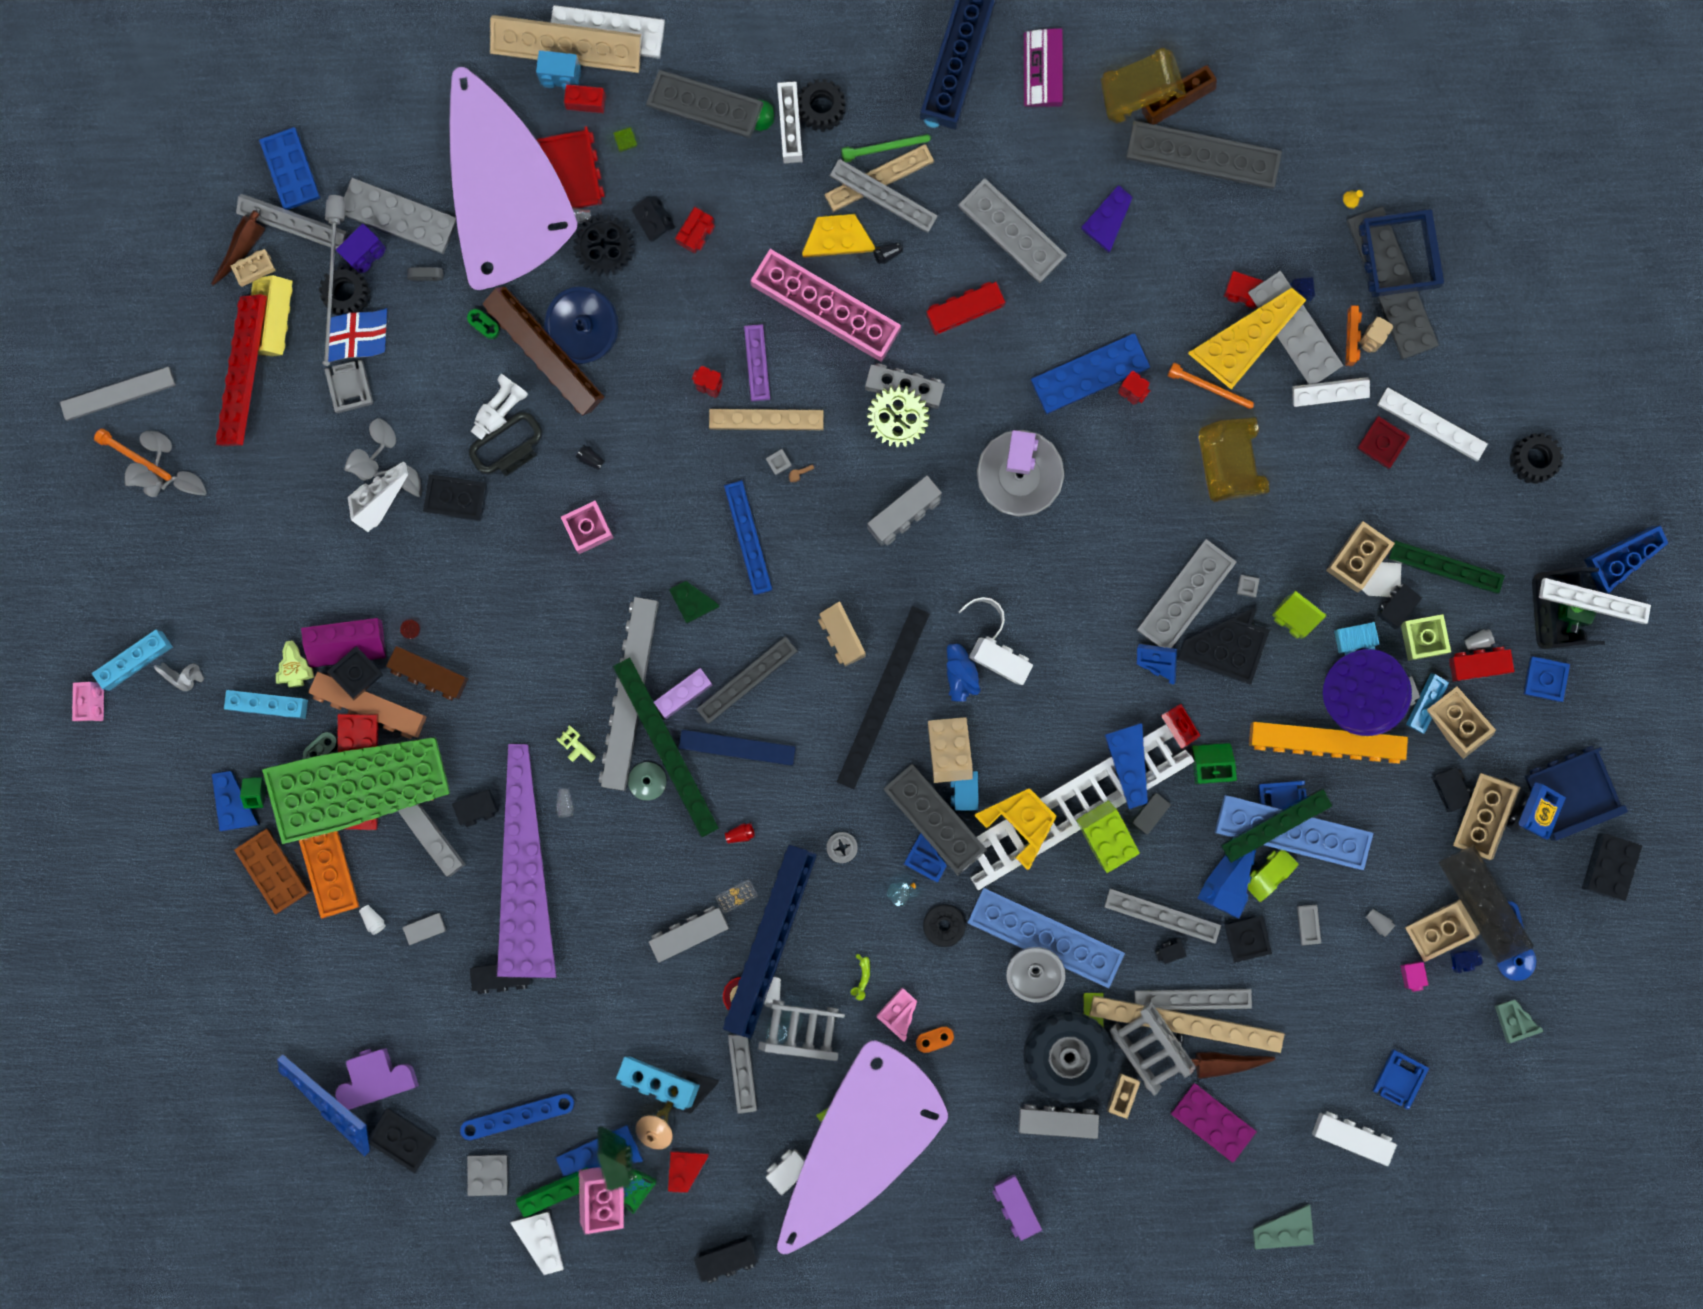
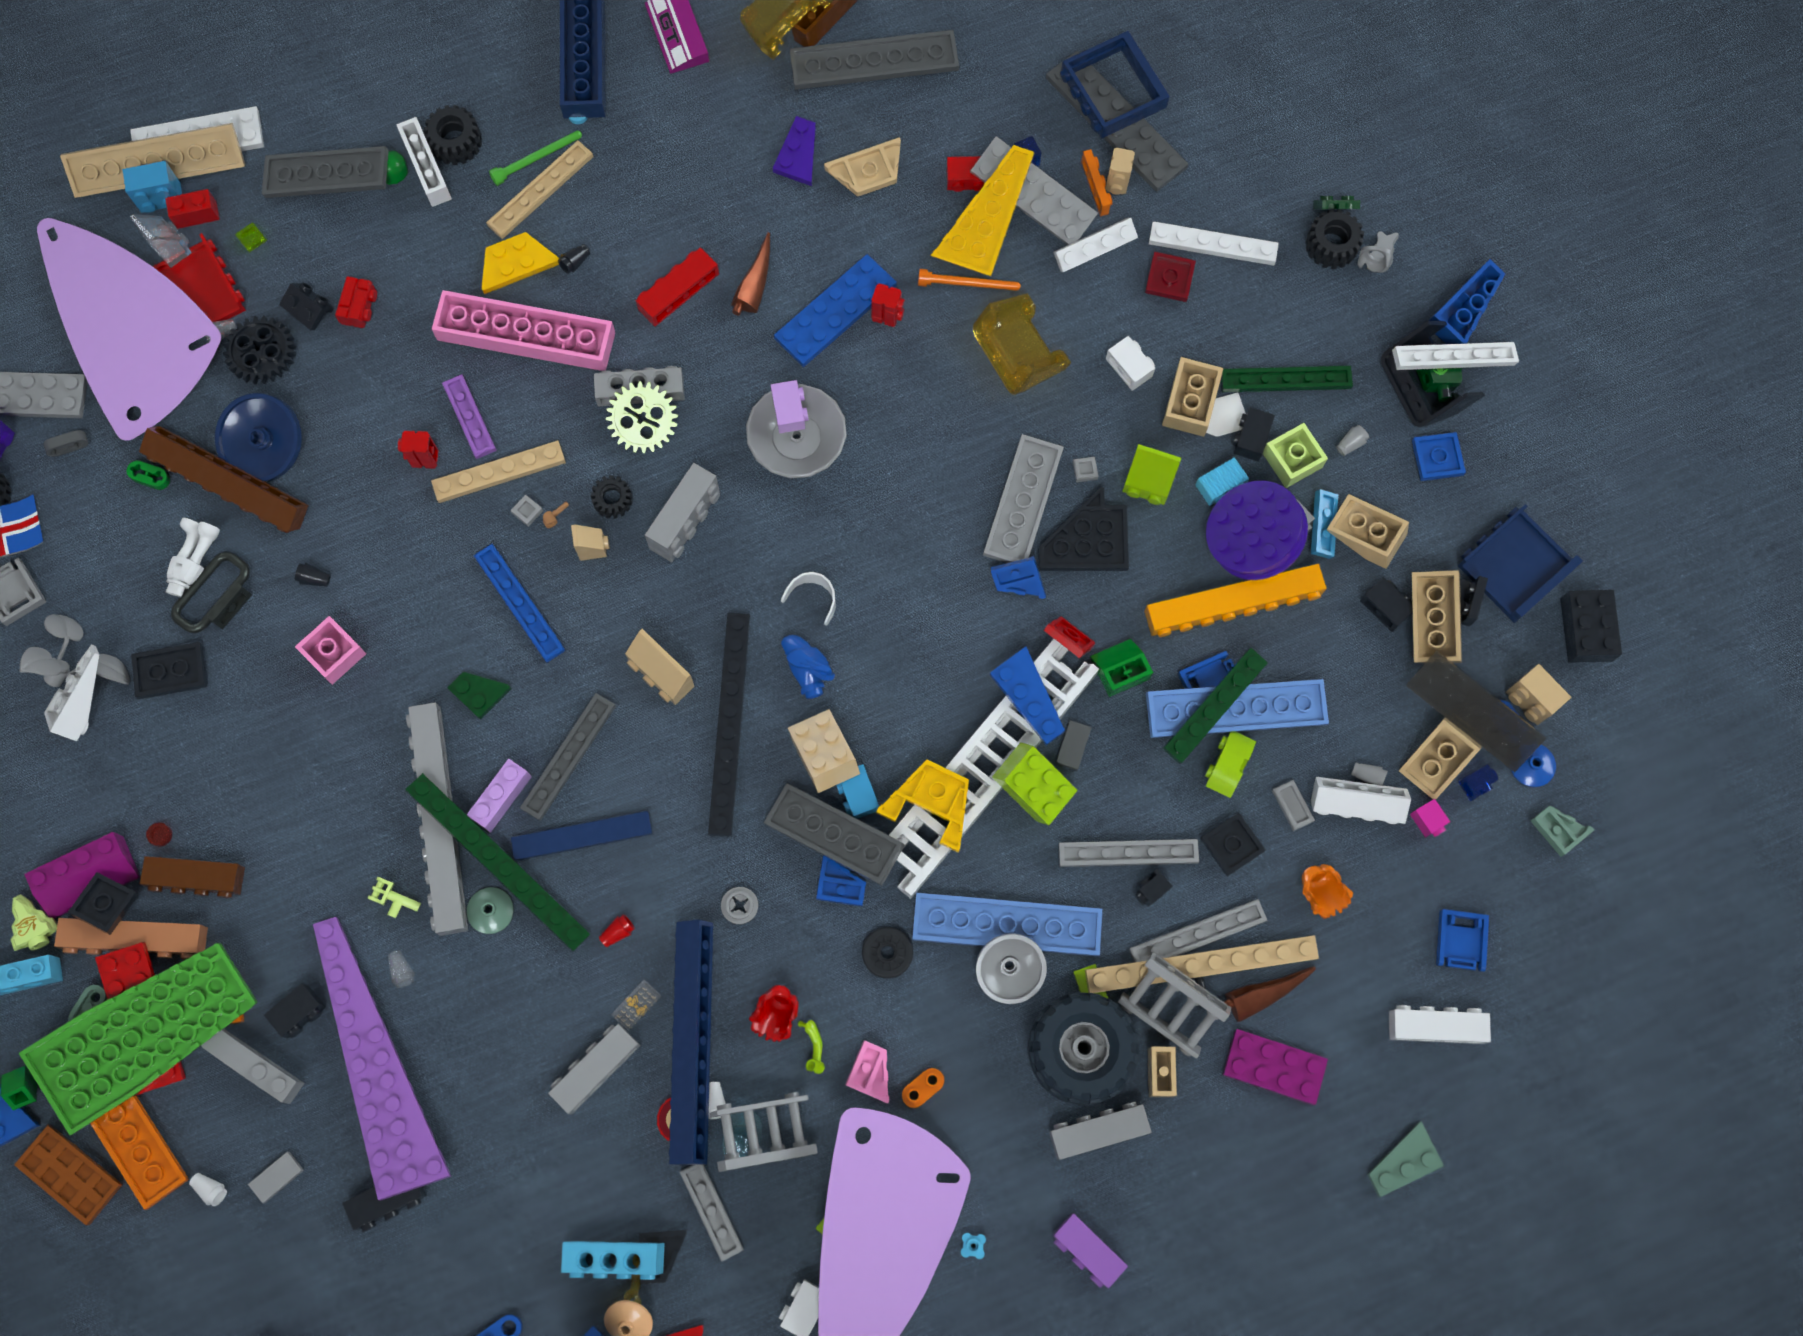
camera: 25 degrees left, 10 degrees down
(553, 119) = (162, 238): none -> clear slope
(821, 509) = (589, 542): none -> tan slope
(841, 943) = (775, 1014): none -> red hair
(850, 463) = (611, 509): none -> black tyre
(883, 196) = (549, 202): light grey plate -> none
(902, 892) = (825, 930): clear light blue animal -> none
(930, 1166) = (969, 1239): none -> medium azure plate
(1001, 660) = (846, 635): white brick -> none
(1012, 230) = (700, 195): light grey plate -> none
(1026, 330) = (751, 289): none -> copper piece
(1162, 255) = (868, 168): none -> tan wing
(1228, 885) = (1188, 791): blue wedge -> none
(1306, 1002) = (1325, 890): none -> orange hair
(1320, 507) = (1130, 362): none -> white brick
(1352, 198) = (1043, 52): yellow rock -> none
(1363, 941) = (1360, 800): none -> white brick
(1481, 664) = (1364, 464): red brick -> none
(1541, 814) = (1494, 591): blue container -> none
(1542, 908) = (1538, 695): none -> tan brick
(1555, 429) = (1327, 202): none -> dark green wing
(1570, 488) = (1381, 255): none -> light grey hair

